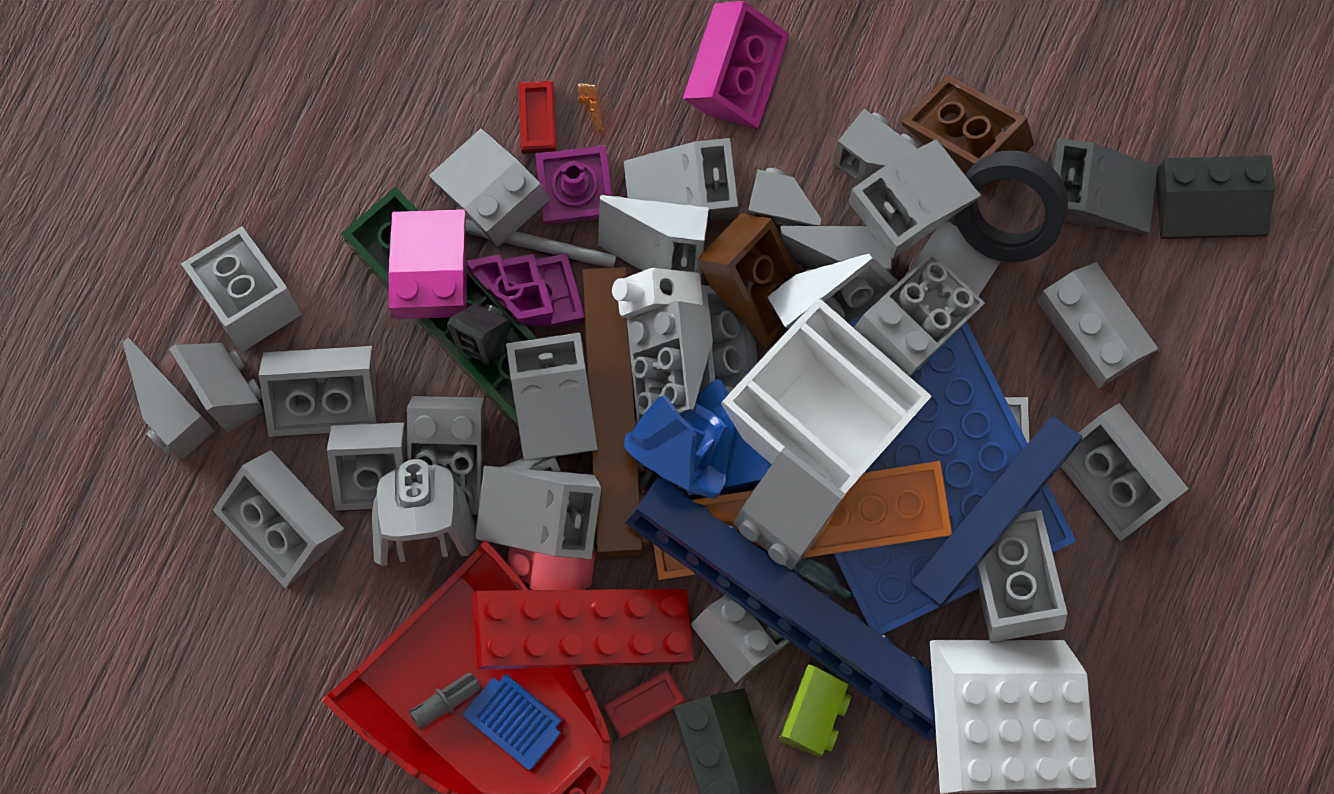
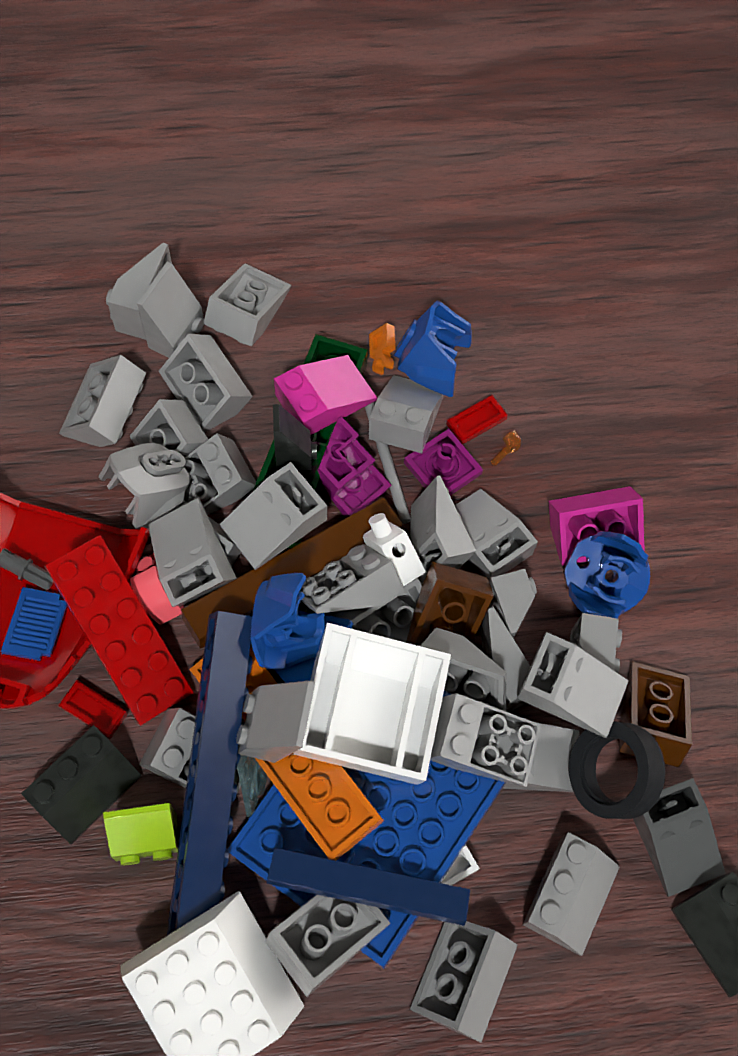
camera: 55 degrees right, 10 degrees down
(387, 168) = (381, 344): none -> orange plate
(431, 129) = (428, 347): none -> blue piece
(806, 91) = (621, 591): none -> blue piece

